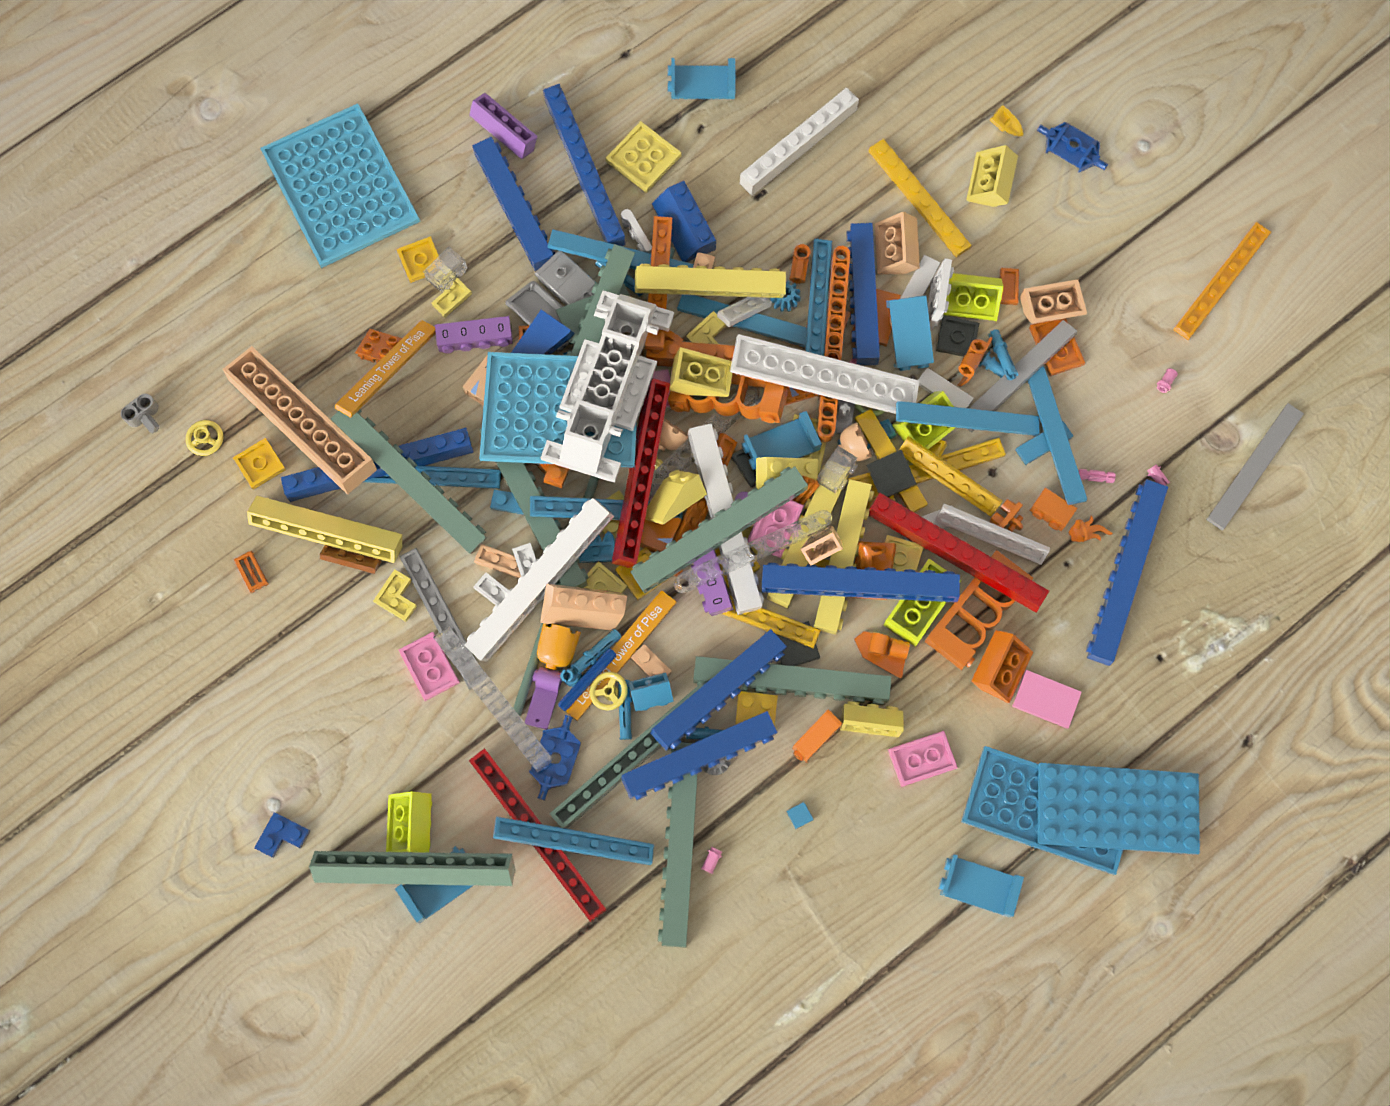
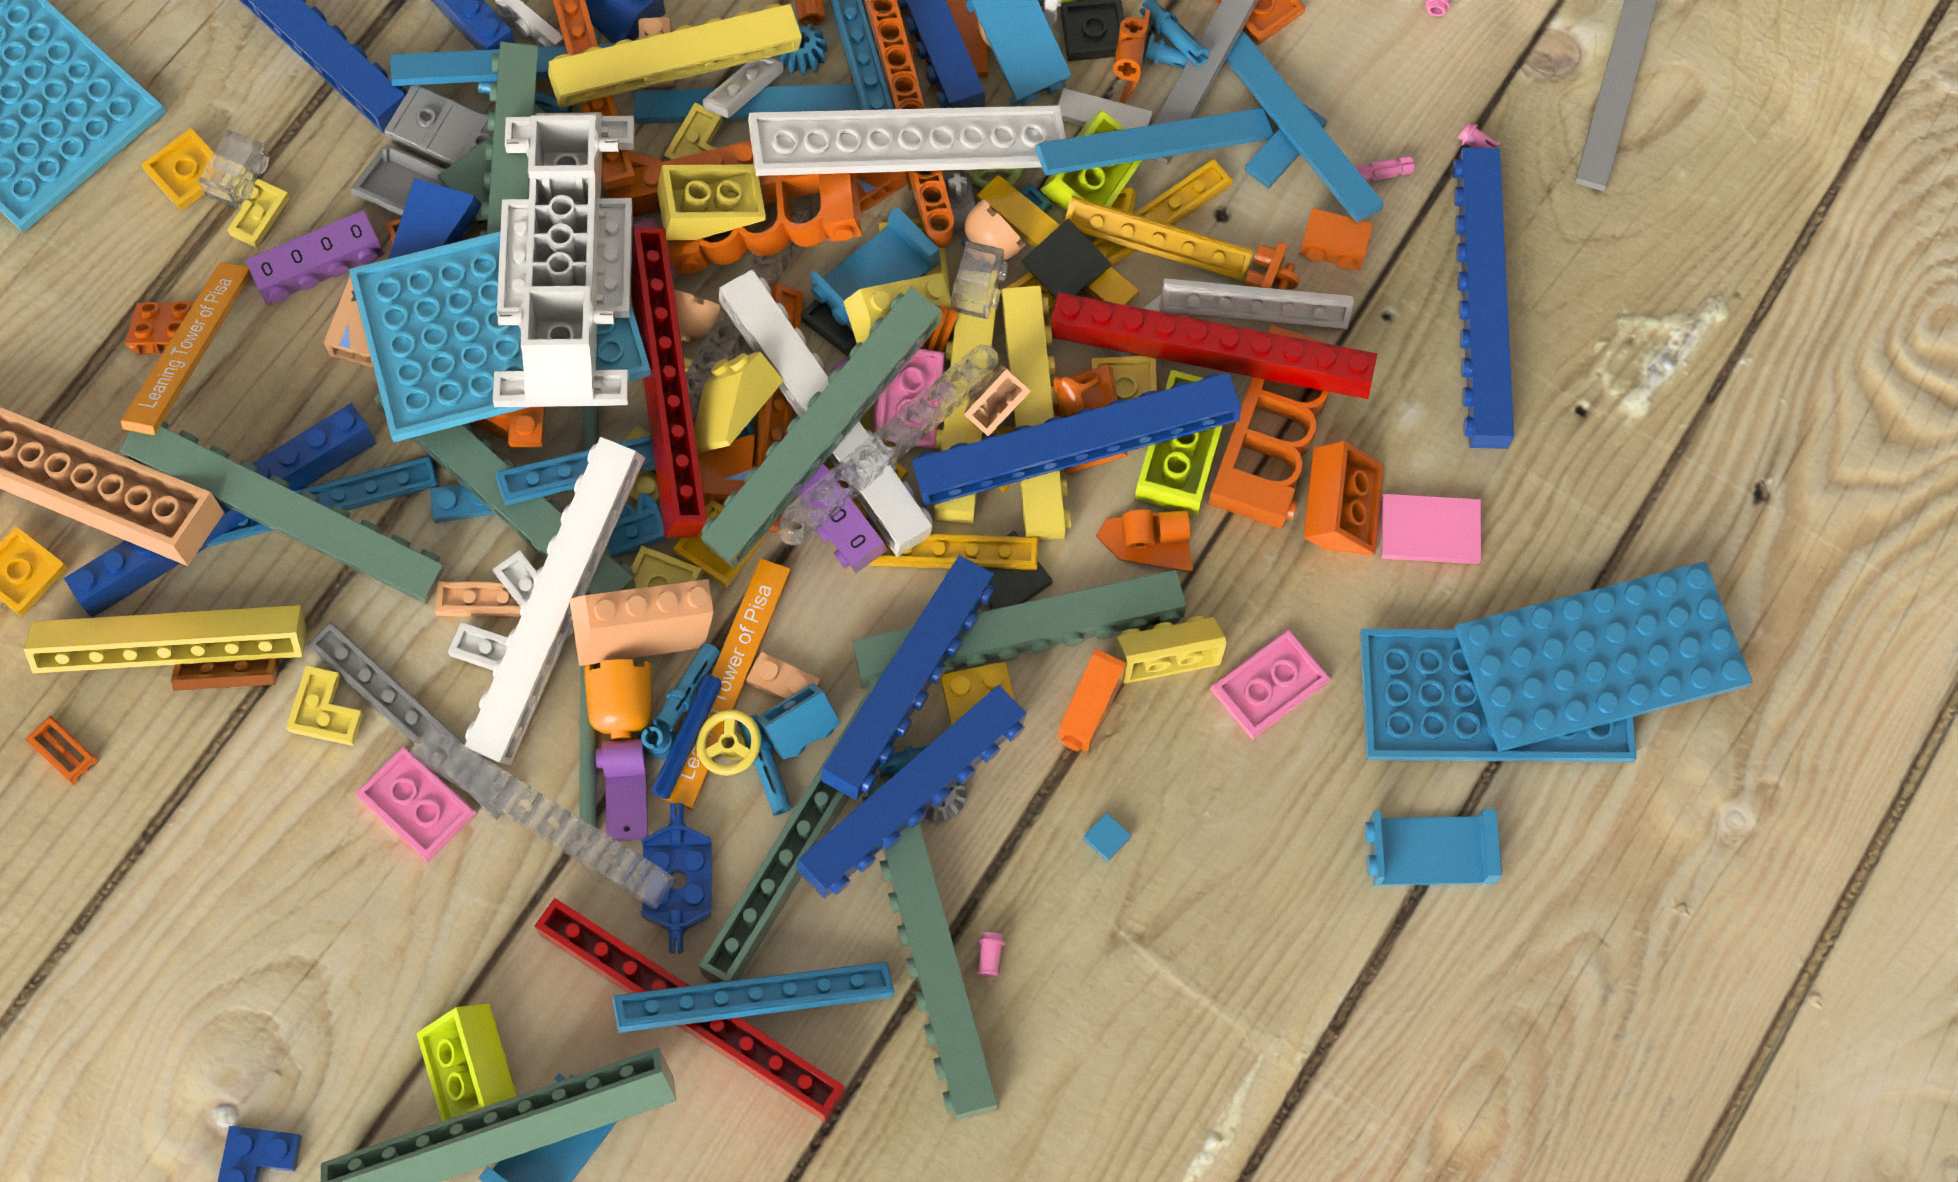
camera: 20 degrees left, 5 degrees down
(1082, 531) = (1395, 258): orange piece -> none

